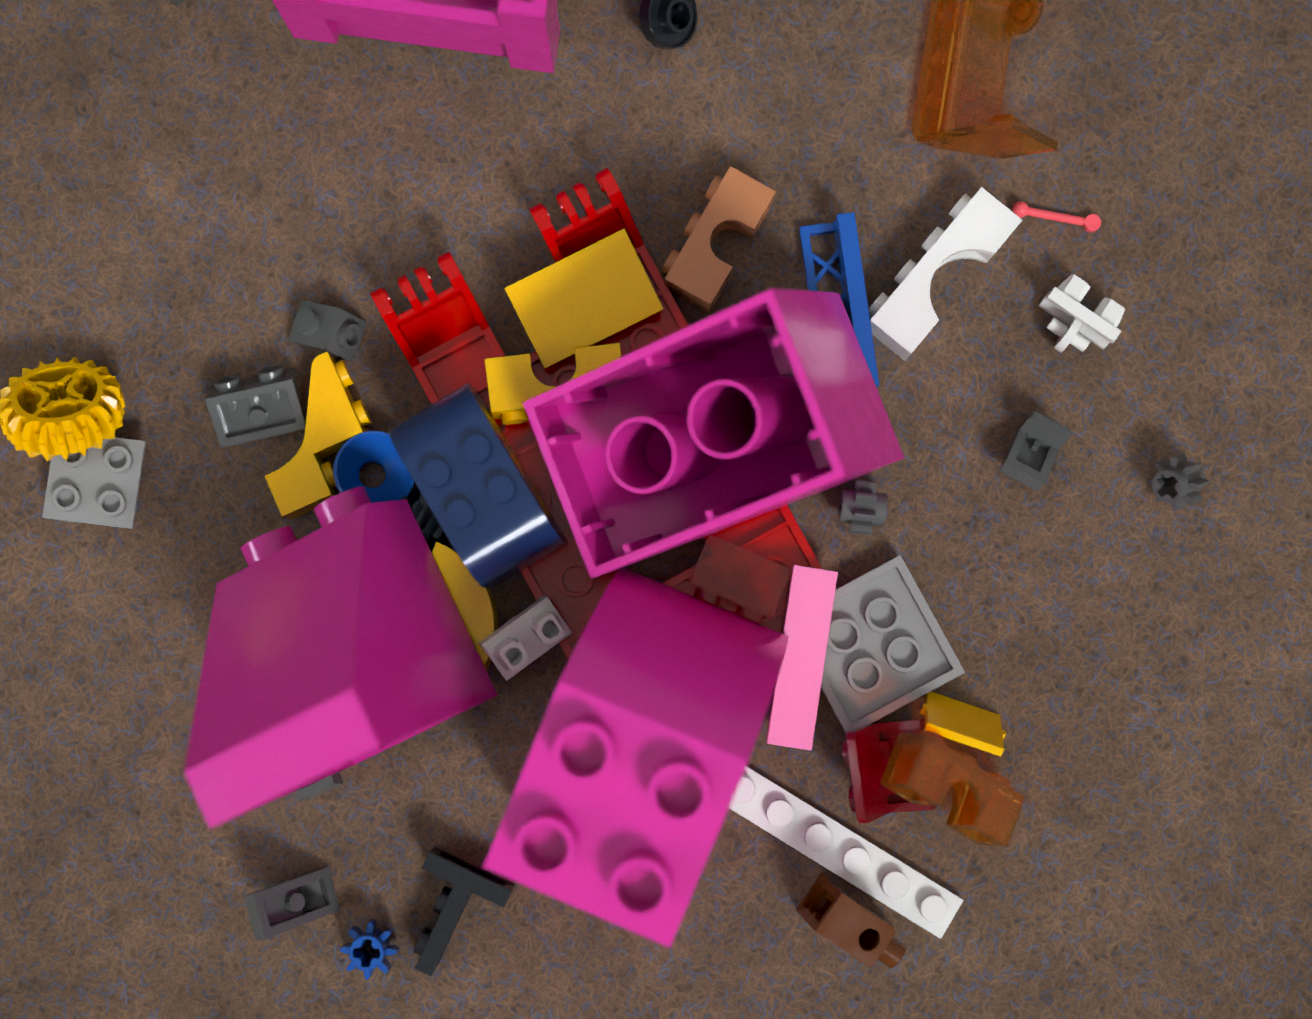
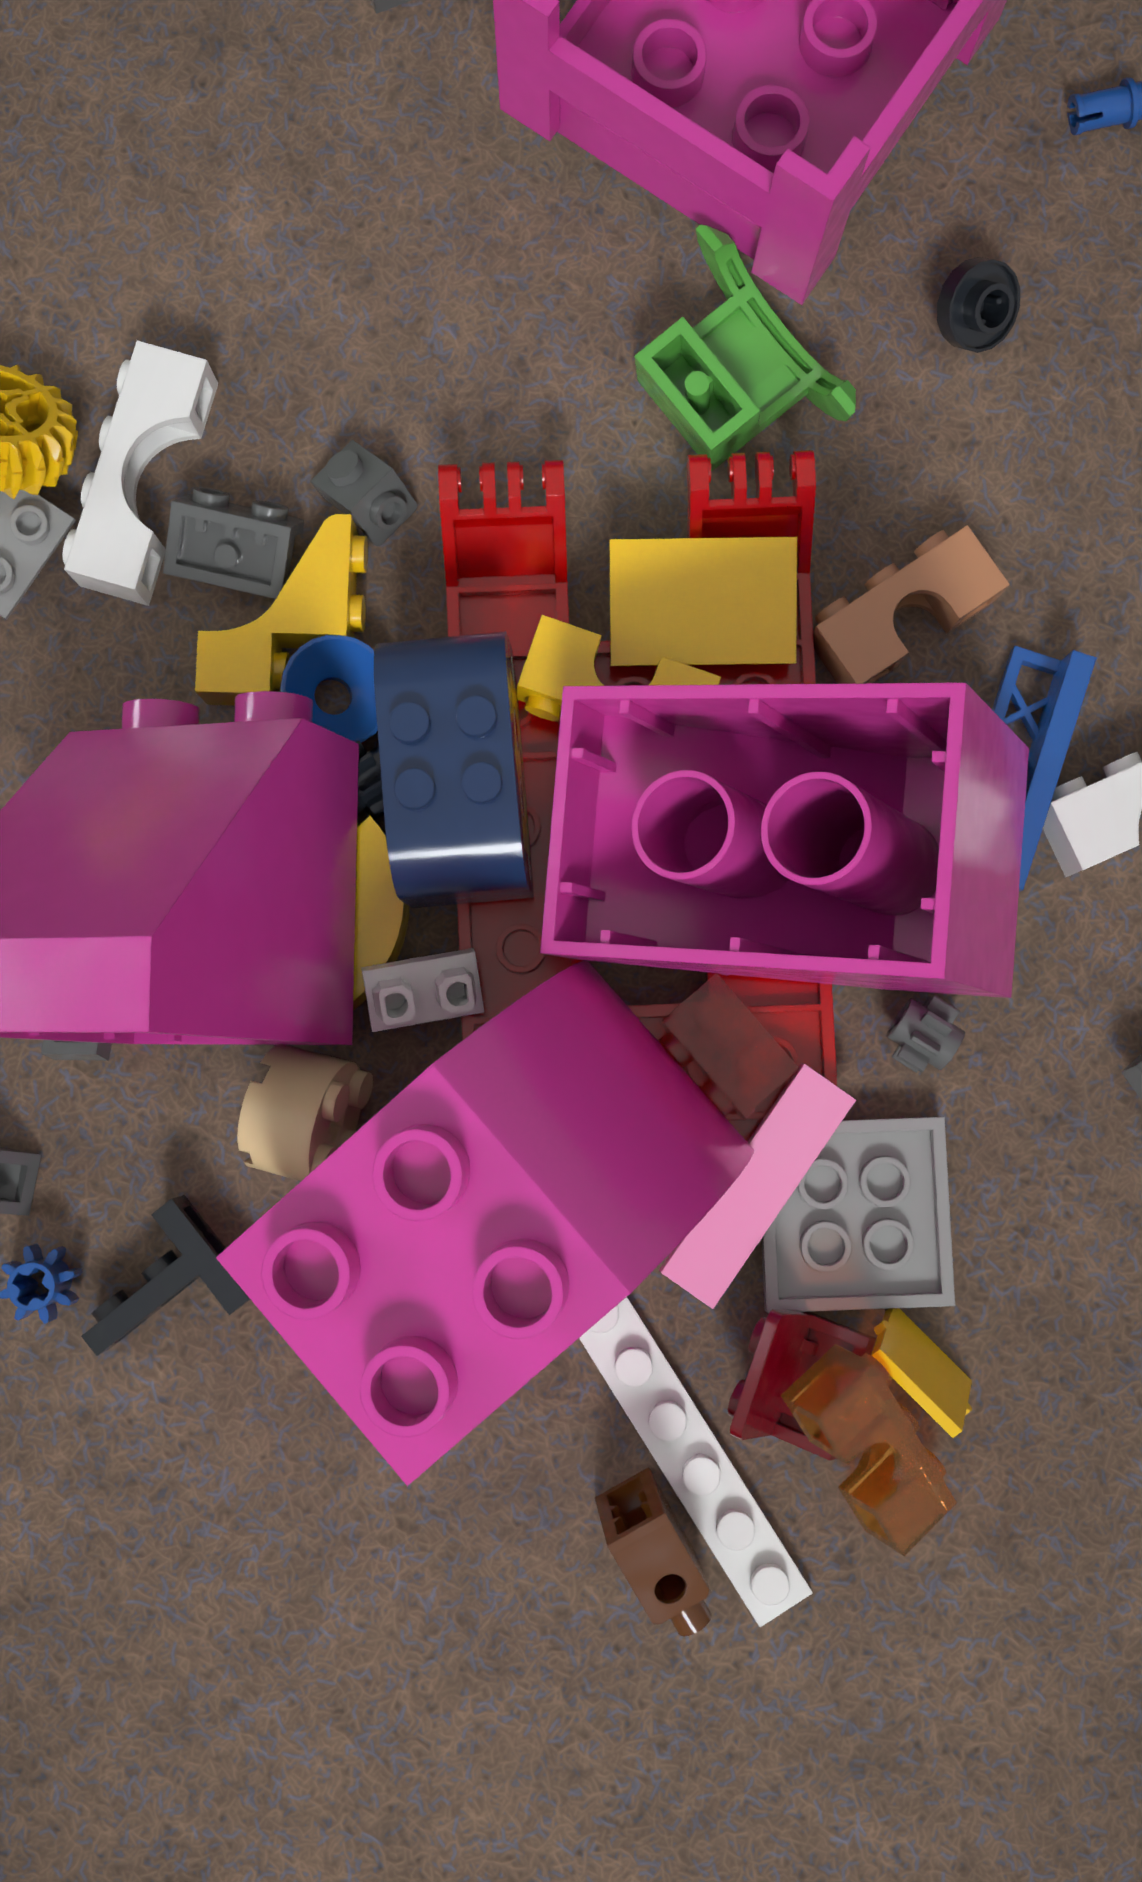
camera: 25 degrees right, 0 degrees up
(163, 337) = (159, 403): none -> white arch
(486, 754) = (300, 1110): none -> tan brick
(529, 132) = (735, 365): none -> bright green piece

